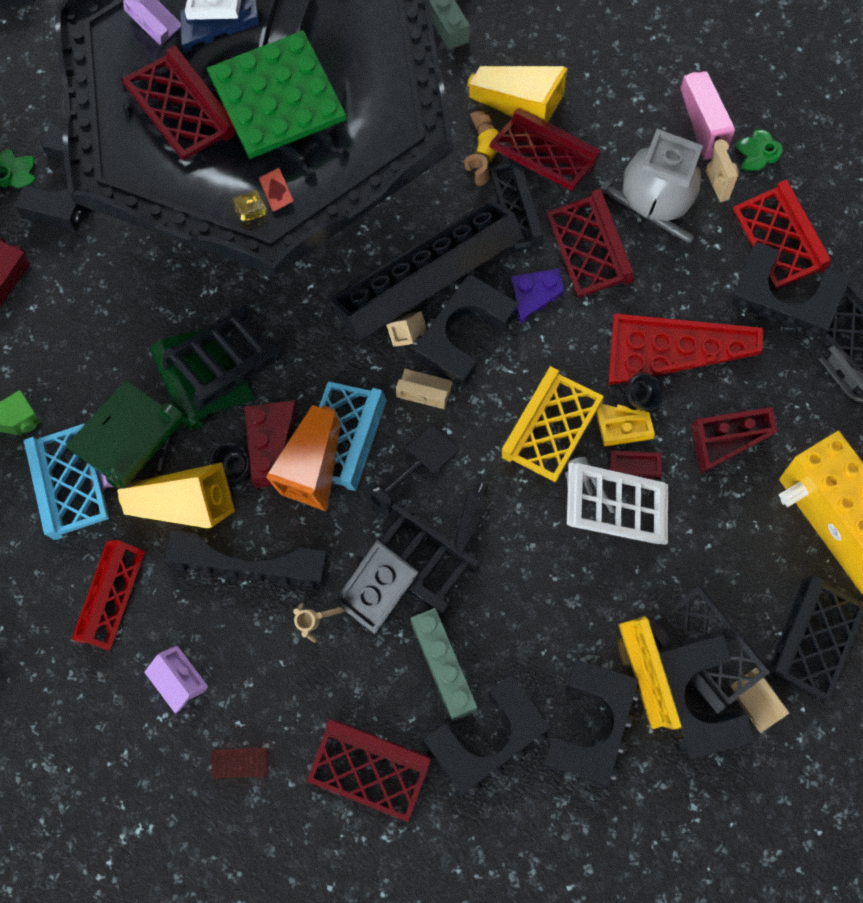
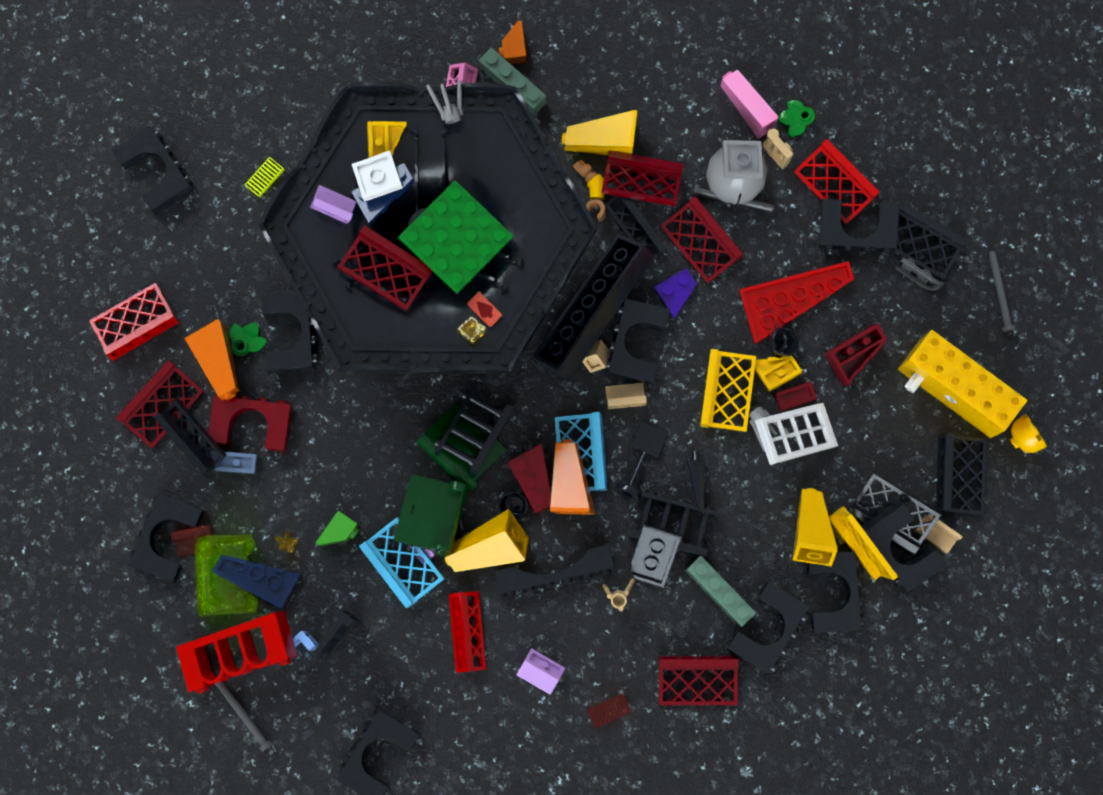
camera: 25 degrees left, 10 degrees up
(590, 632) = (814, 532): none -> yellow slope

